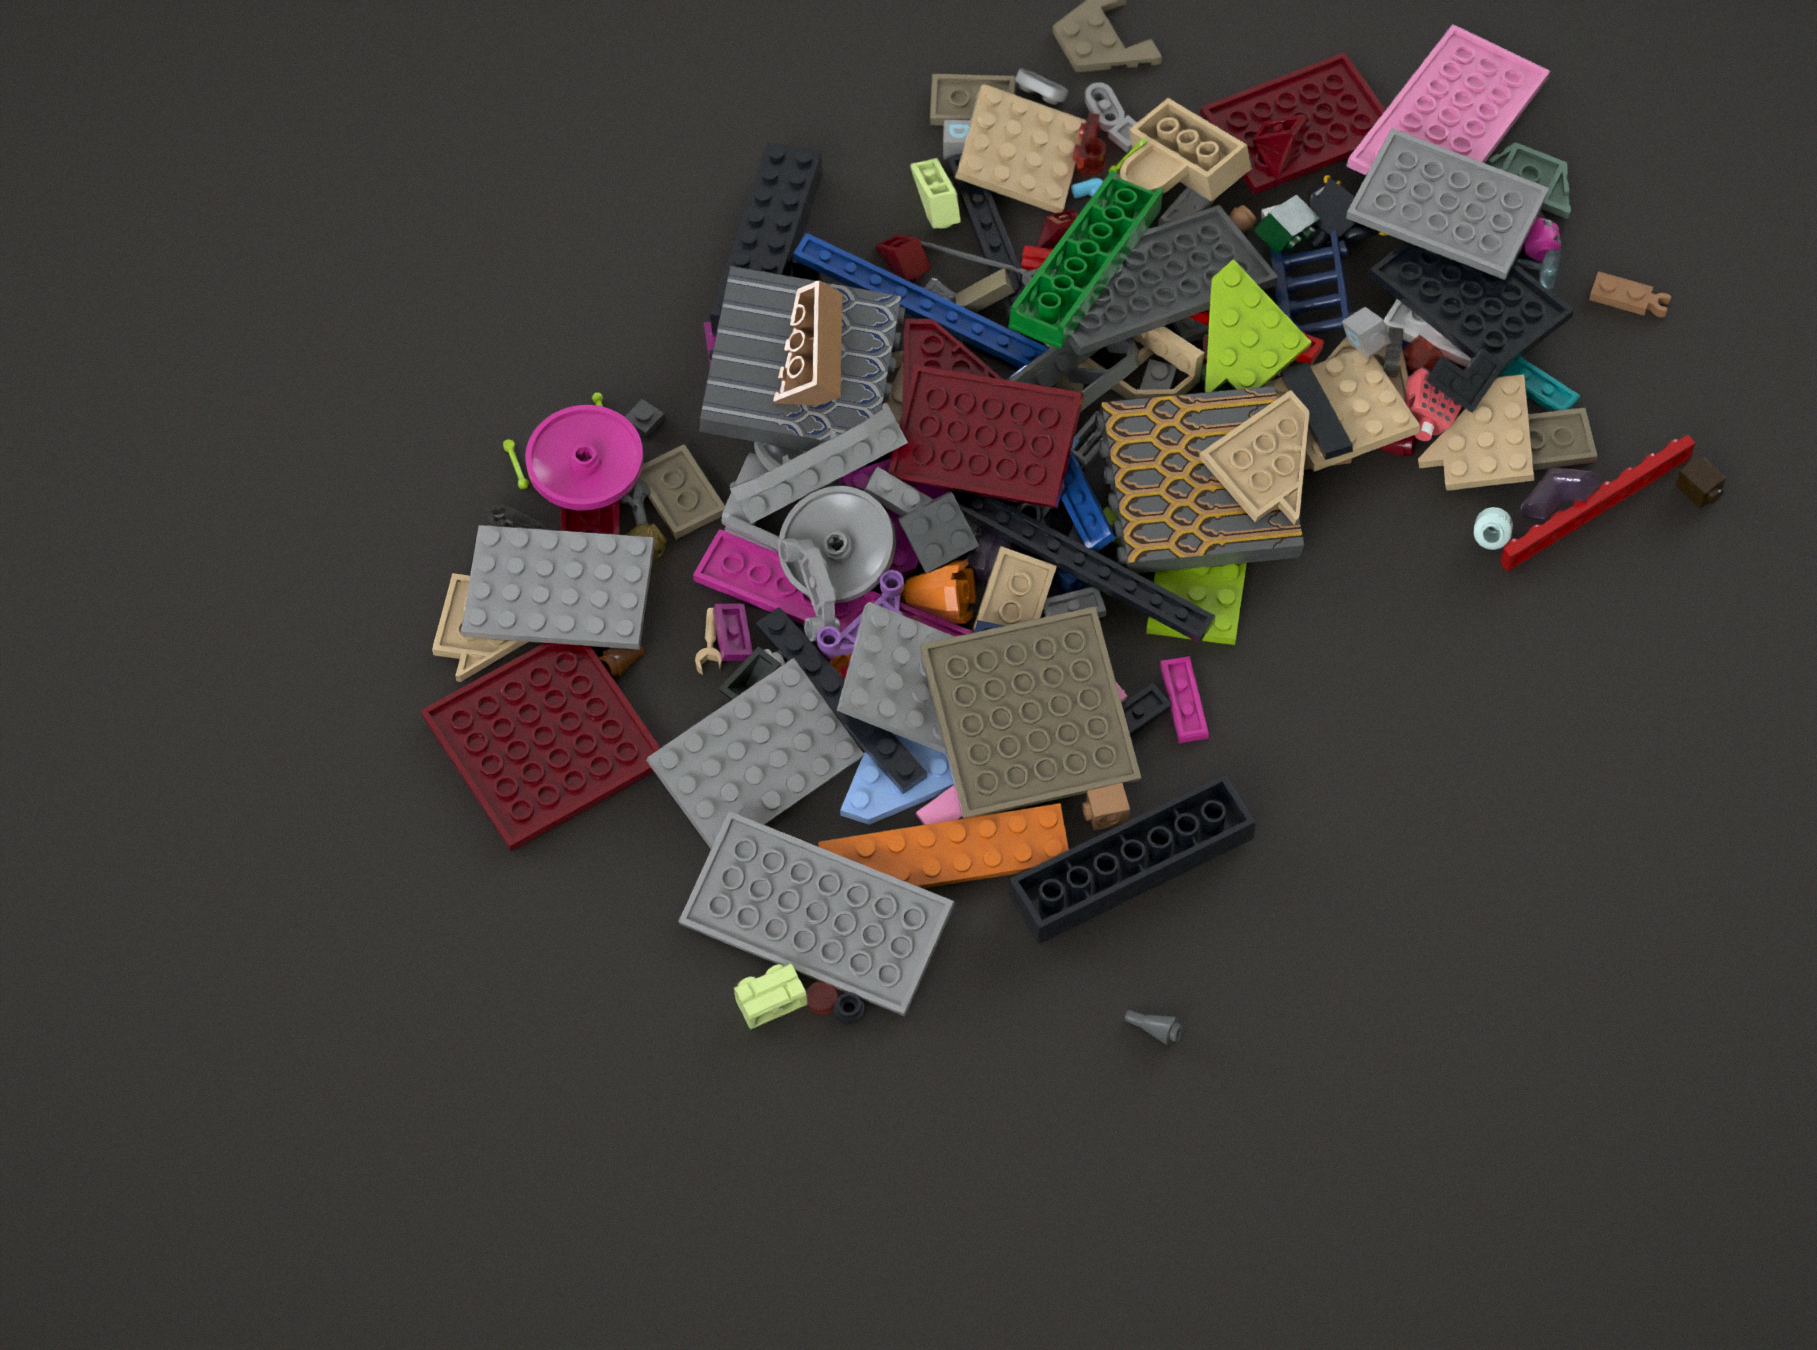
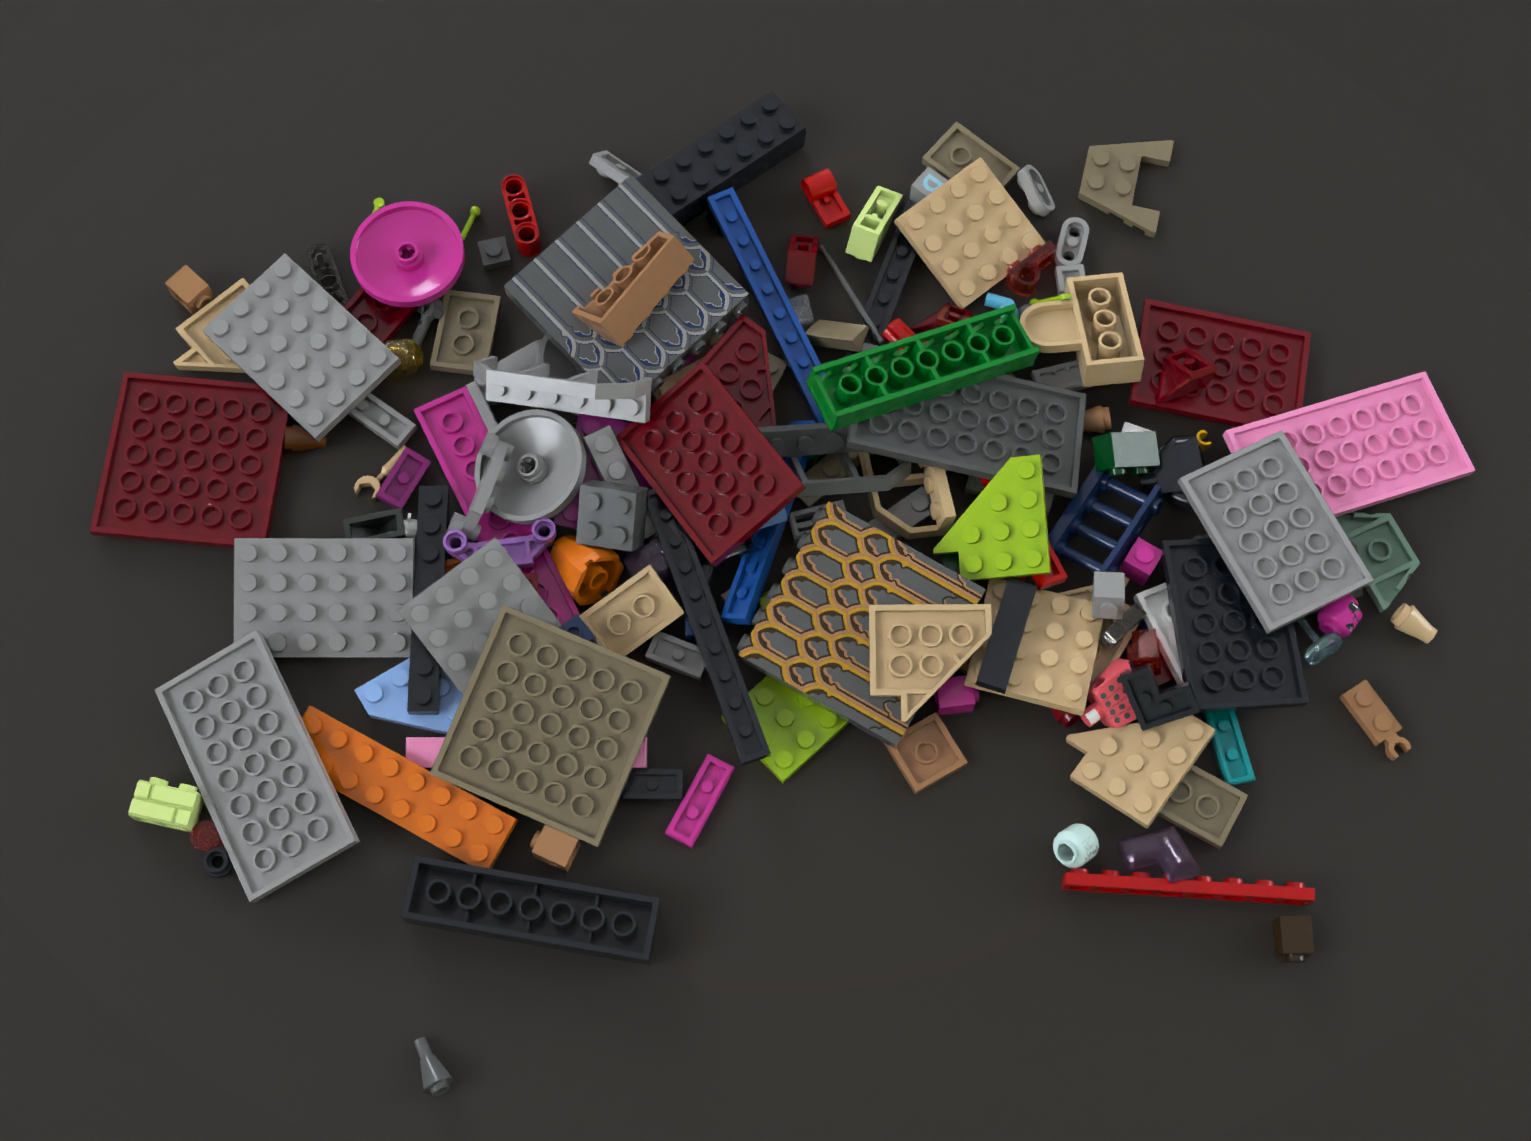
camera: 35 degrees right, 10 degrees up
(416, 613) = (190, 289): none -> medium nougat brick
(648, 384) = (521, 204): none -> red beam
(676, 601) = (383, 421): none -> light grey plate
(678, 289) = (612, 167): none -> light grey plate
(873, 197) = (825, 199): none -> red plate
(1315, 489) = (955, 697): none -> dark pink brick
(1326, 546) = (927, 753): none -> medium nougat tile
(1365, 294) = (1141, 561): none -> dark pink brick
(1597, 209) = (1412, 622): none -> tan cone

